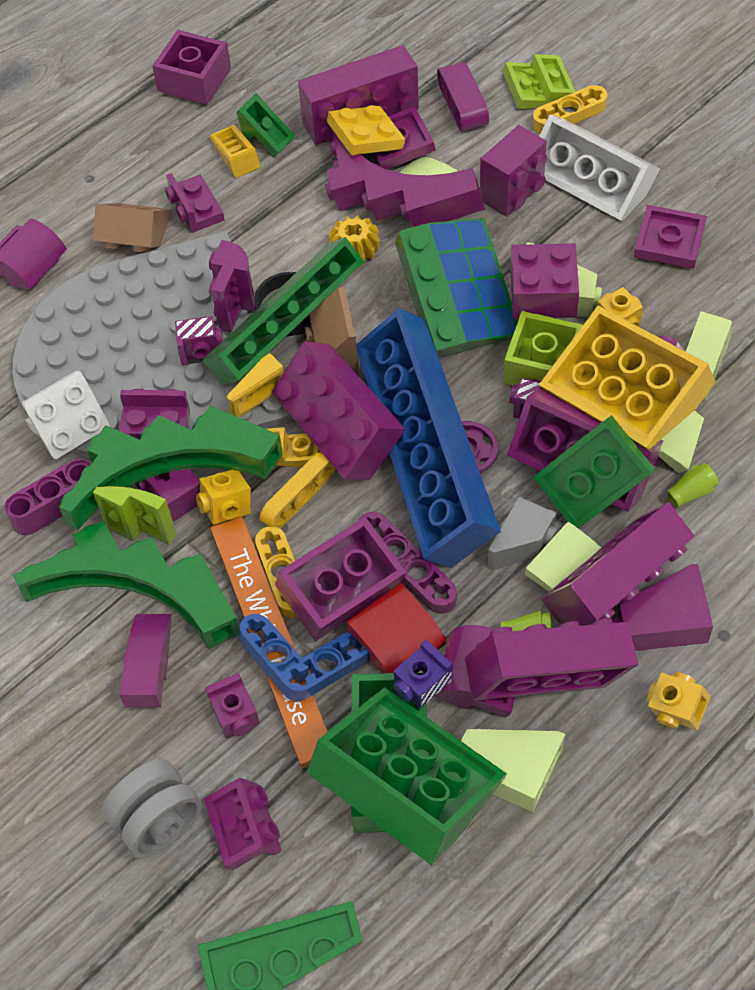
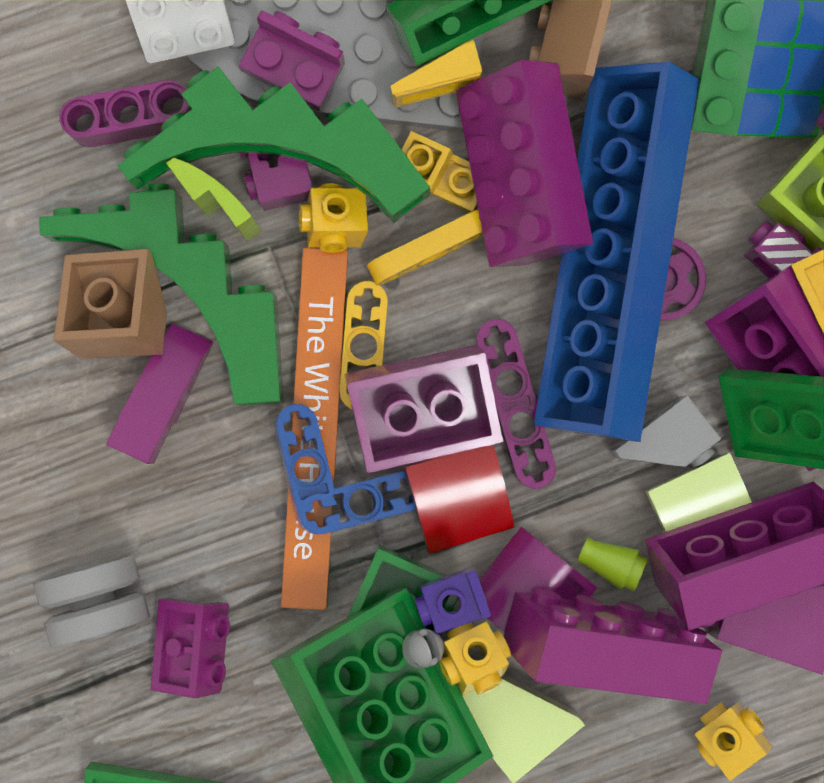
camera: 20 degrees right, 30 degrees up
(87, 611) = (111, 305): none -> medium nougat slope
(229, 693) = (243, 489): magenta brick -> none
(416, 714) = (417, 650): none -> light grey hinge
(457, 708) = (469, 673): none -> yellow brick

